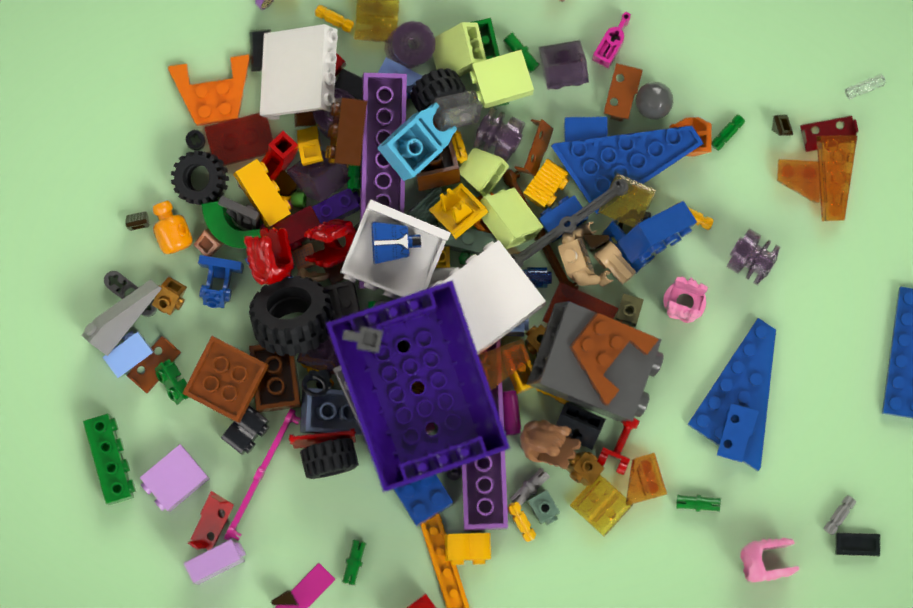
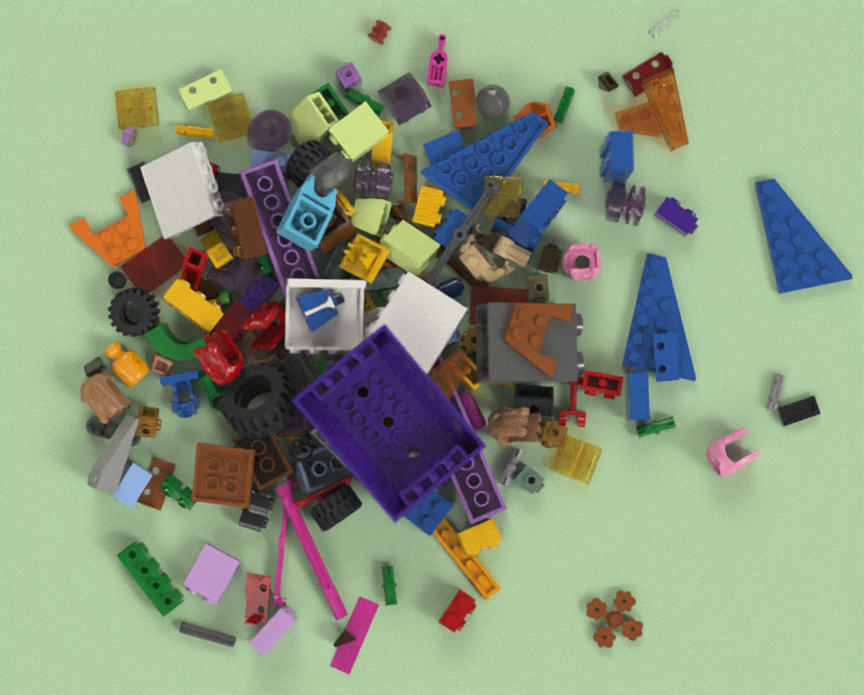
camera: 25 degrees left, 5 degrees up
(134, 253) = (104, 397): none -> medium nougat piece
(144, 541) = (207, 634): none -> dark grey axle
(243, 215) = (183, 330): dark grey wing -> none
(248, 289) = (211, 390): none -> green piece
(289, 540) = (328, 588): none -> dark pink piece
(367, 339) = (332, 401): dark grey plate -> none
(514, 20) = (348, 76): none -> medium lavender brick
(521, 107) = (382, 150): none -> yellow slope
(521, 521) = (515, 498): yellow axle -> none
(645, 480) = (604, 425): clear orange wing -> none
(652, 285) = (550, 259): none -> dark brown brick
(657, 435) = (602, 384): none -> red brick
(690, 461) = (637, 395): none -> blue brick
(762, 202) = (617, 156): none -> blue brick
(803, 291) = (677, 217): none -> dark purple brick

